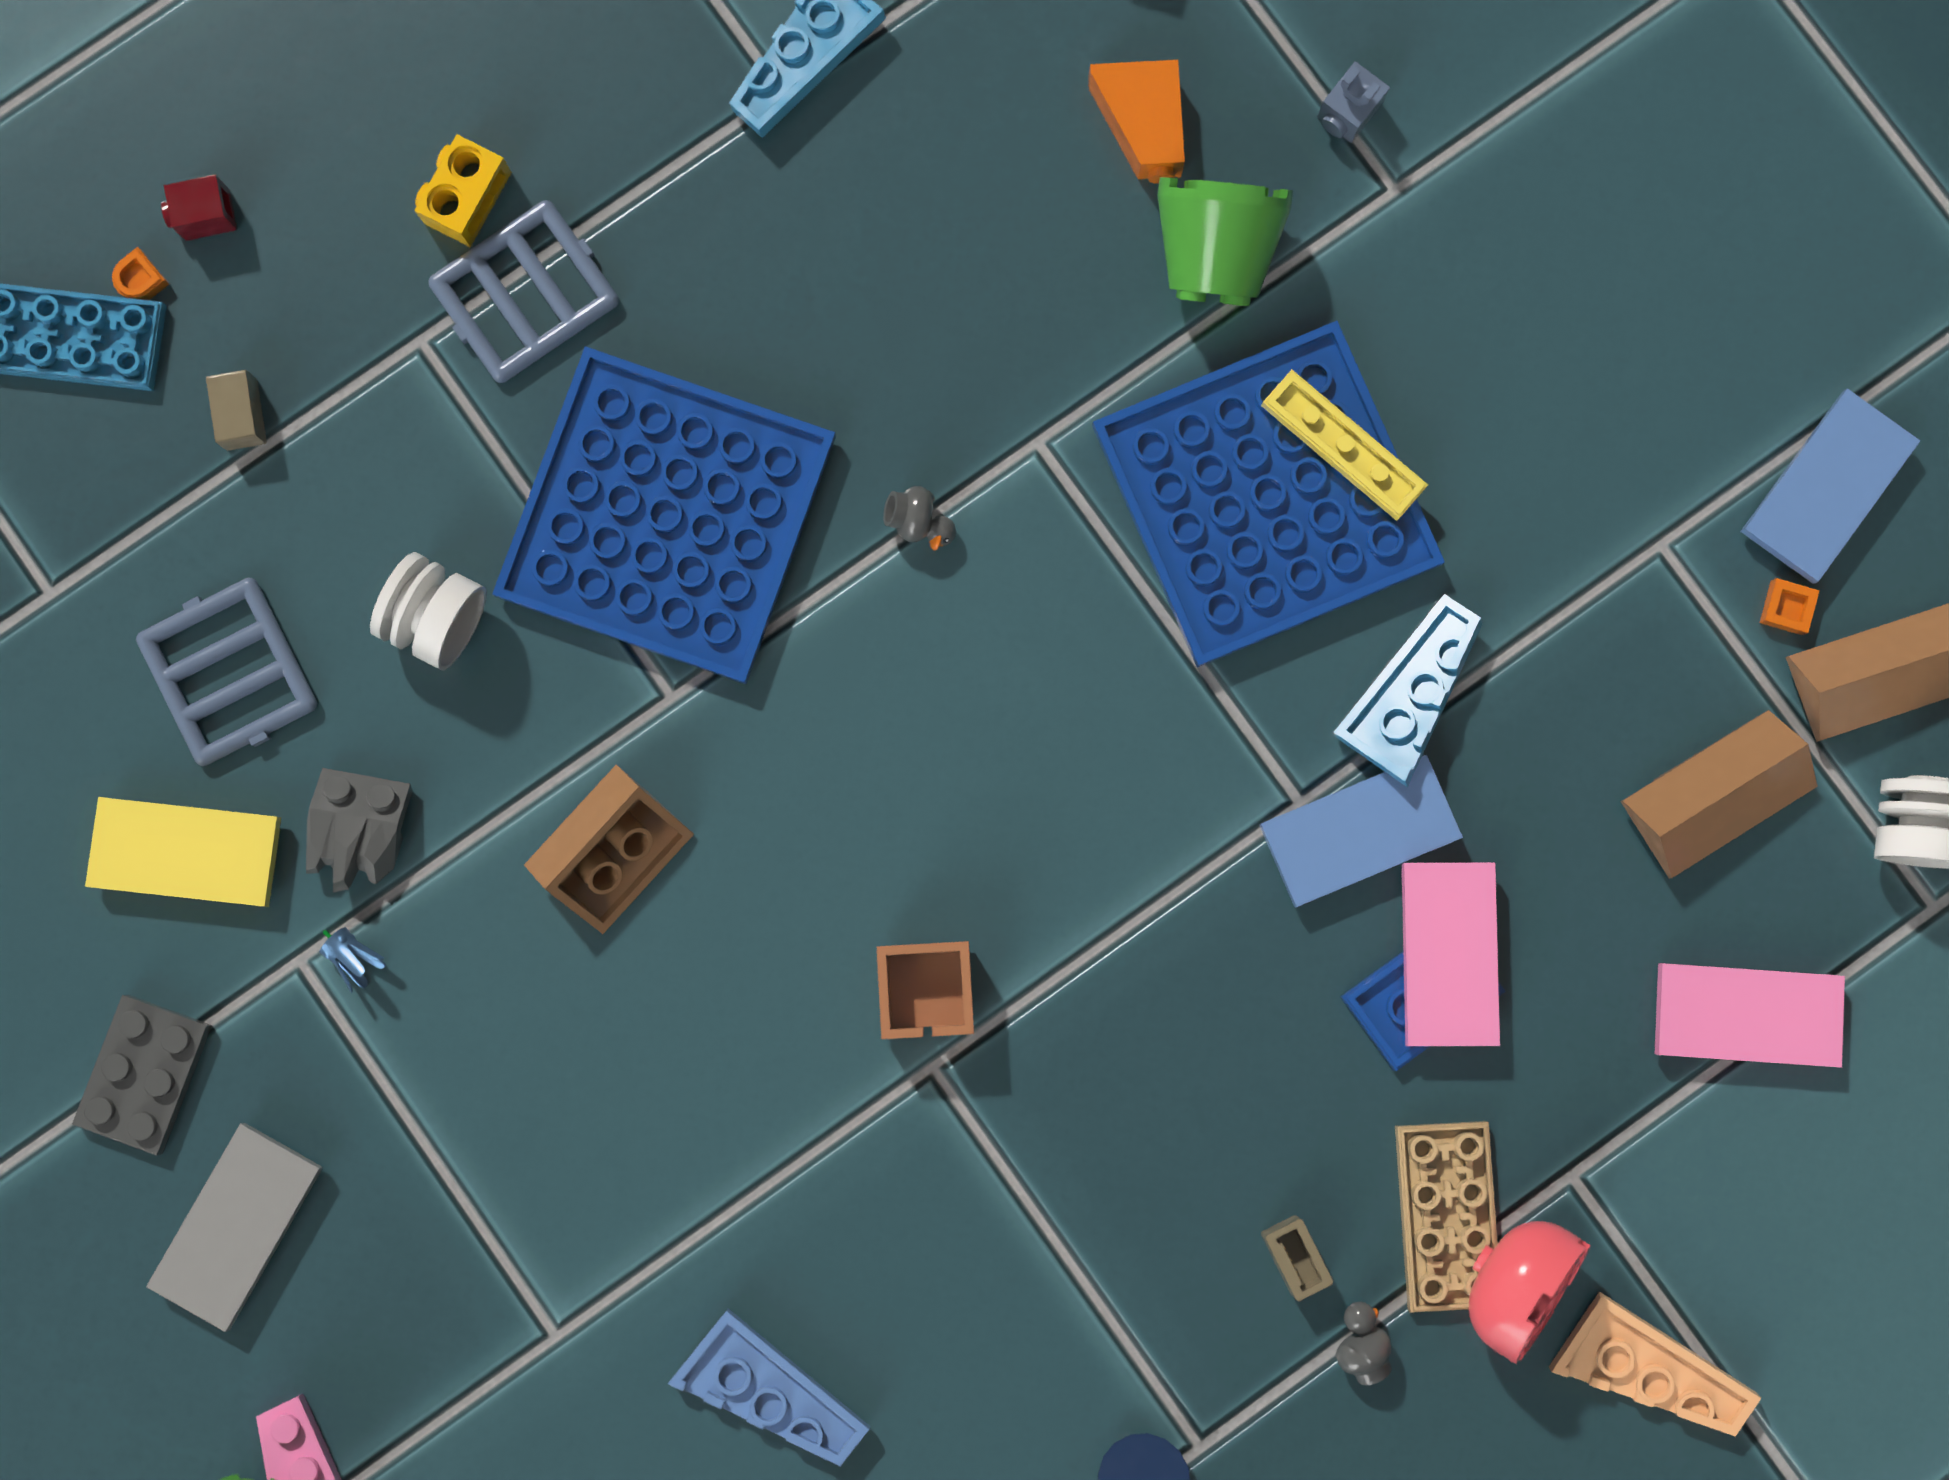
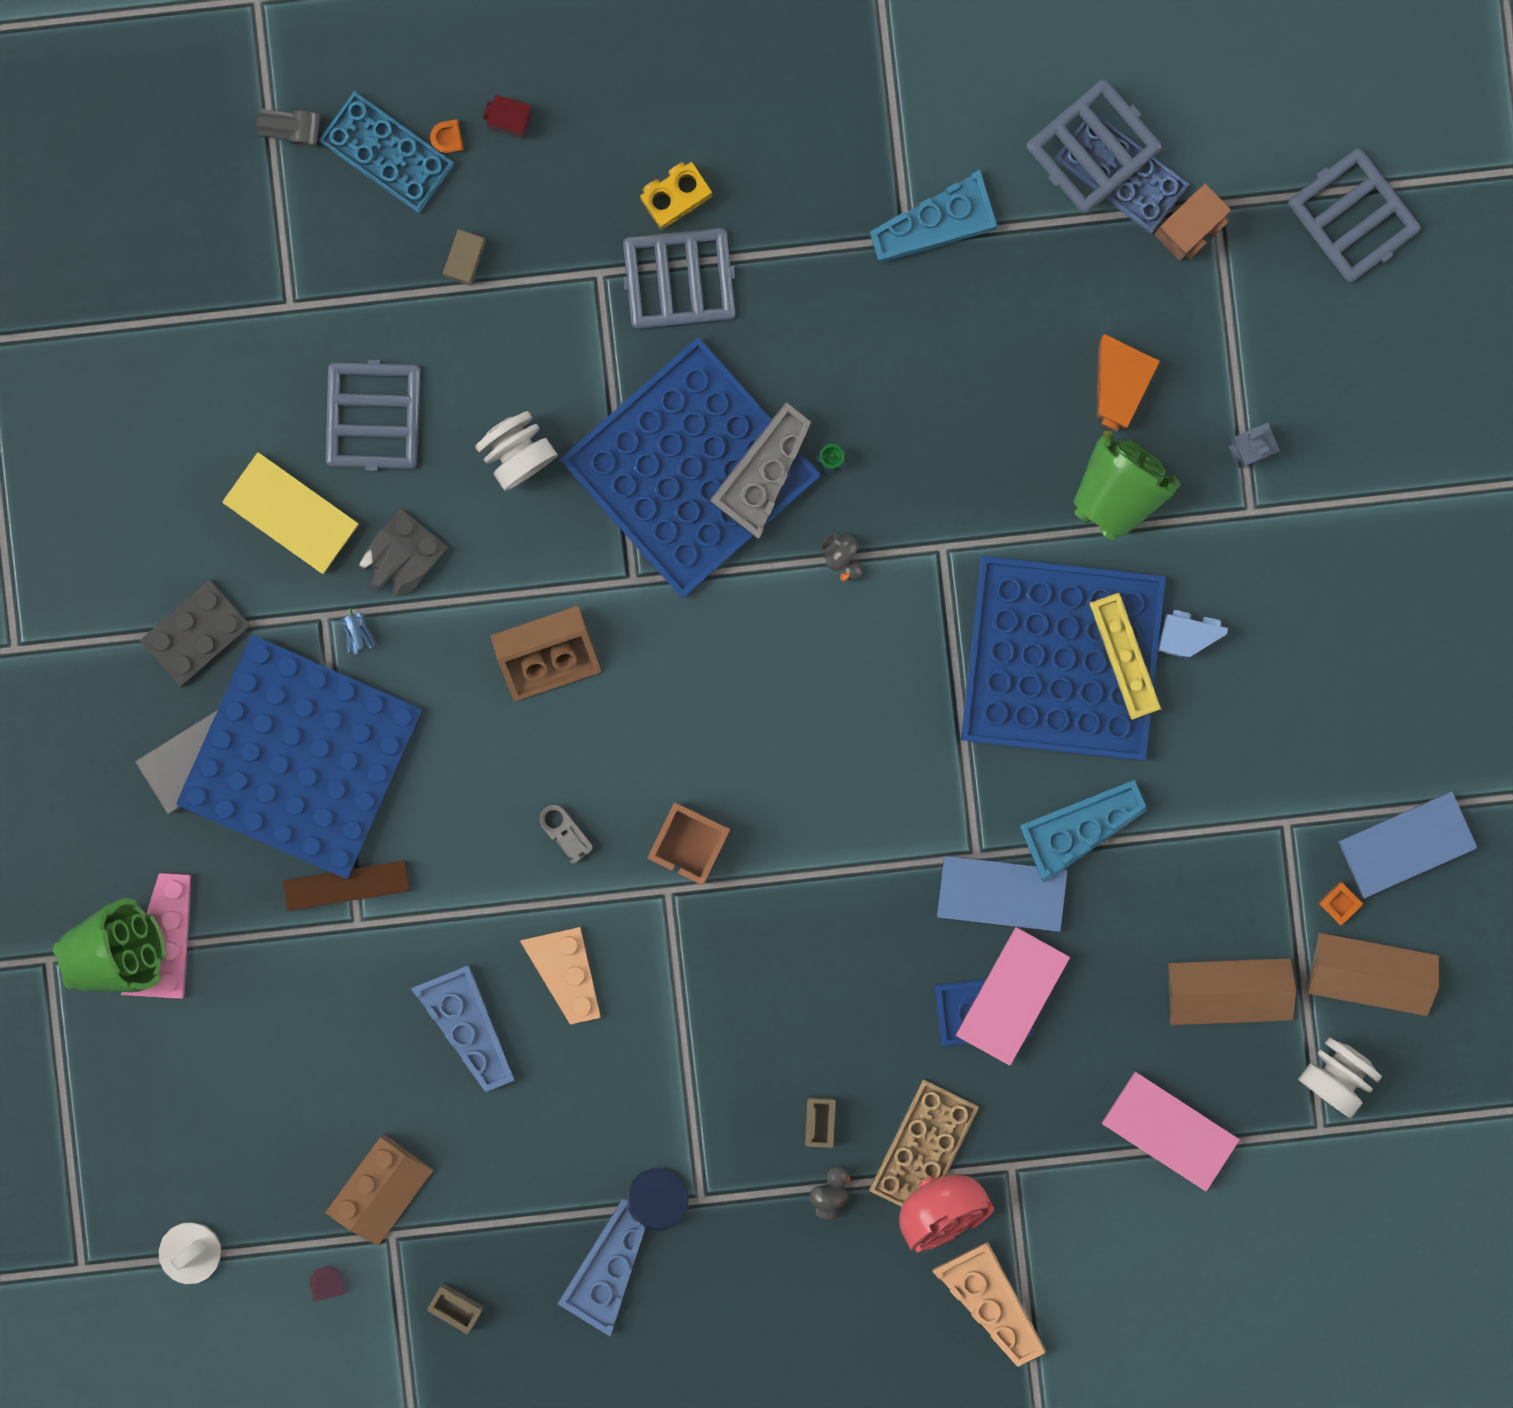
camera: 30 degrees right, 5 degrees up
(358, 1162) = (299, 757): none -> blue plate
(512, 1294) = (332, 889): none -> reddish brown tile
(756, 476) = (758, 477): none -> light grey wing
(764, 1065) = (568, 835): none -> light grey piece
(835, 400) = (831, 457): none -> green piece
(859, 1246) = (566, 972): none -> light nougat wing
(1406, 379) = (1185, 636): none -> light blue slope

